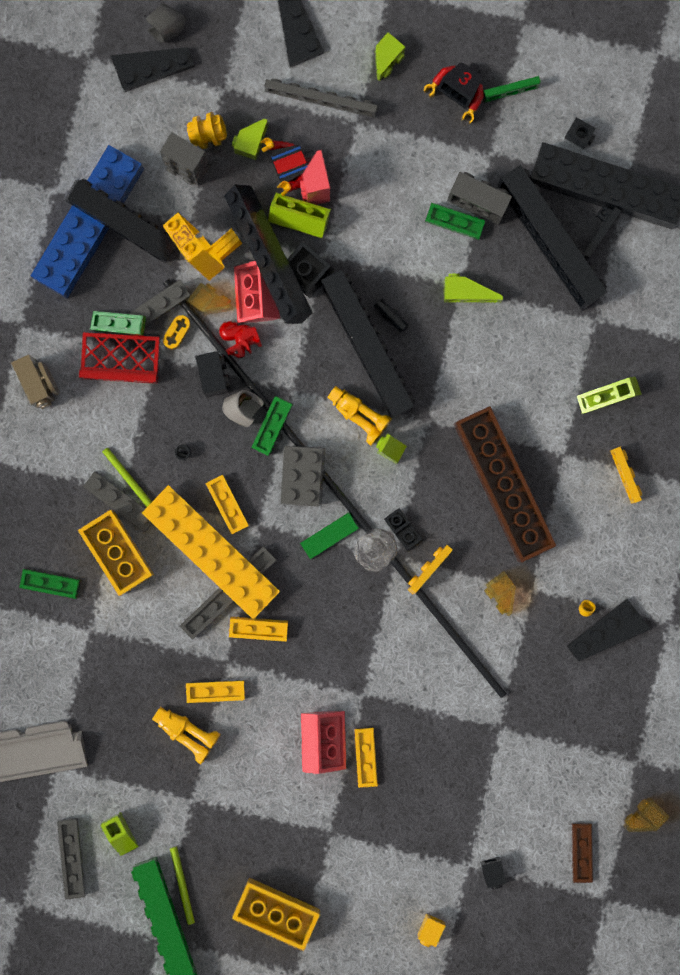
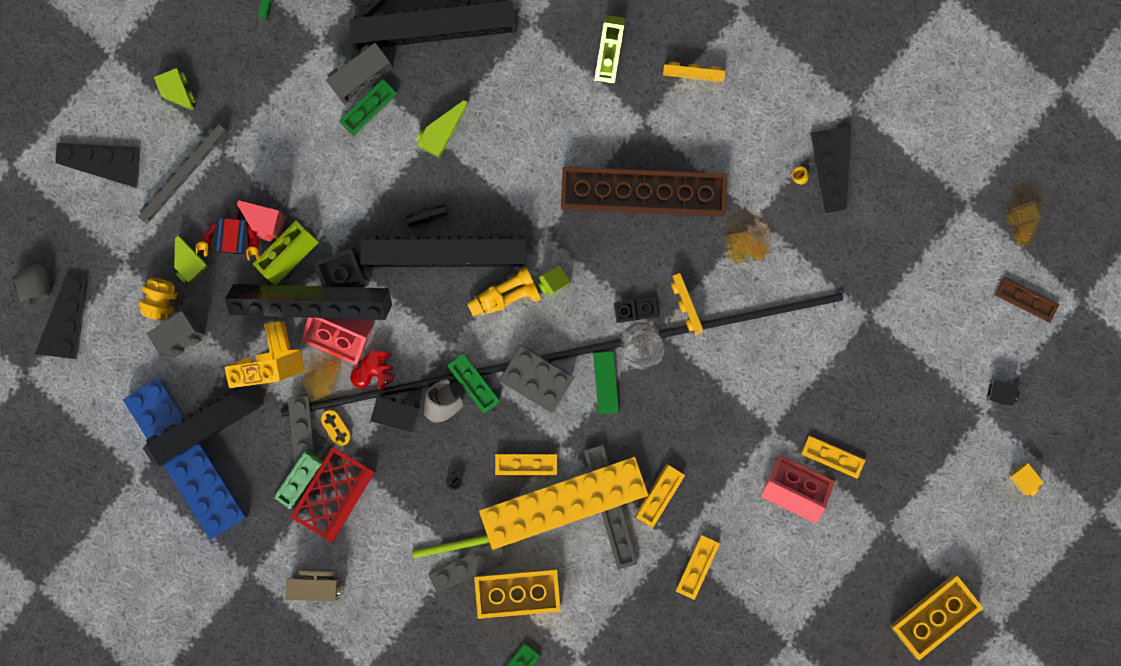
camera: 55 degrees left, 0 degrees up
(175, 726) = (710, 621): yellow piece -> none
(461, 85) = (241, 34): black torso -> none

